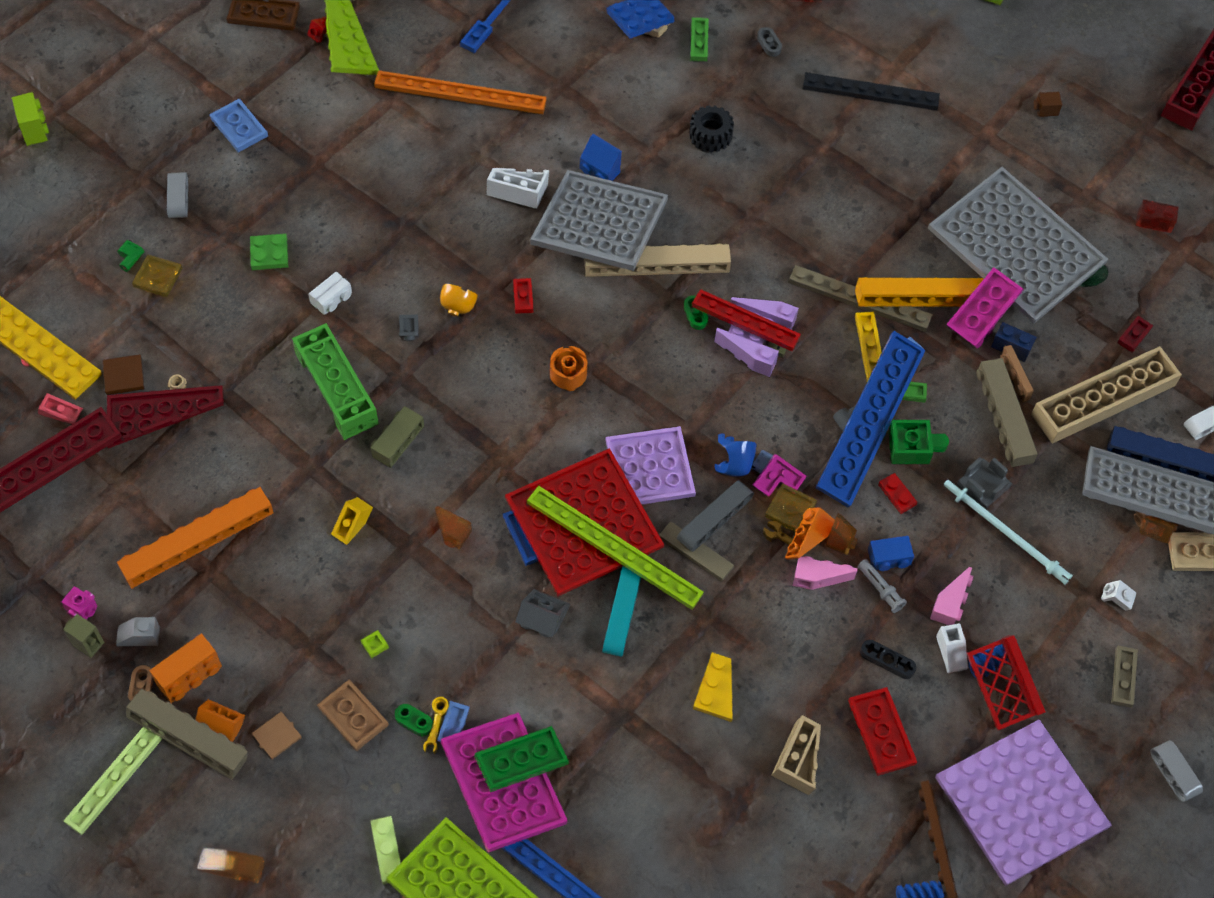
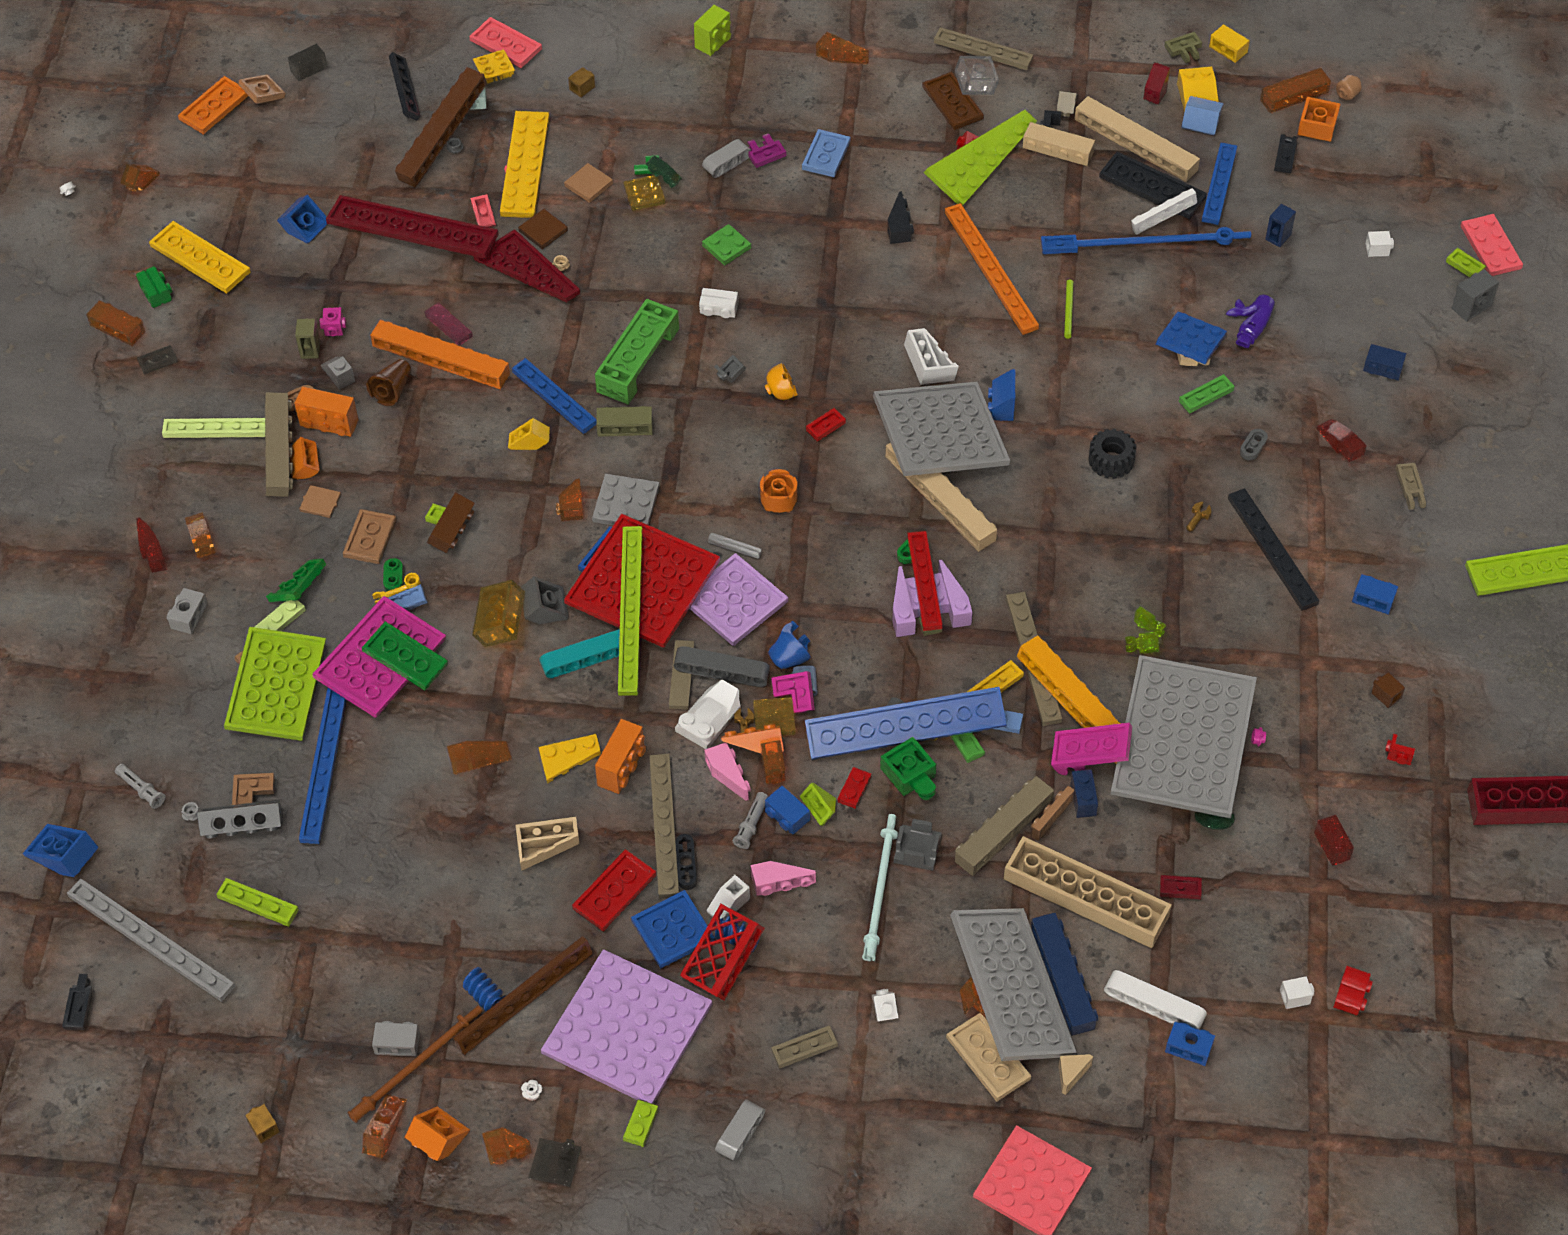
camera: 60 degrees right, 5 degrees down
(104, 310) = (588, 182): none -> medium nougat tile
(137, 50) = (839, 50): none -> clear orange slope
(150, 245) = (660, 167): none -> clear green slope
(163, 511) = (448, 324): none -> clear pink plate
(196, 596) = (389, 382): none -> reddish brown cone
(199, 166) = (766, 154): none -> magenta plate
(321, 474) = (554, 396): none -> blue plate
(360, 122) = (898, 224): none -> black slope
(362, 805) = (296, 586): none -> green wing
(398, 636) = (451, 523): none -> reddish brown brick
(480, 487) = (625, 496): none -> light grey plate
(534, 654) = (498, 613): none -> clear yellow brick
(543, 70) = (1068, 309): none -> lime bar
(593, 433) = (735, 545): none -> light grey axle
(666, 761) = (477, 754): none -> clear orange slope
(752, 554) = (710, 714): none -> white slope
(757, 645) = (620, 756): none -> orange brick
(806, 115) = (1198, 515): none -> pearl gold bar
(839, 654) = (664, 825): none -> dark tan plate
(881, 205) = (1147, 621): none -> clear neon green plate
(897, 526) = (819, 803): none -> lime slope
(900, 218) = (1145, 643): none -> clear neon green plate
(950, 708) = (671, 928): none -> blue plate
(959, 58) = (1375, 594): none -> blue brick
(1103, 134) = (1399, 753): none -> red bracket
(1123, 845) = (640, 1123): none -> lime plate

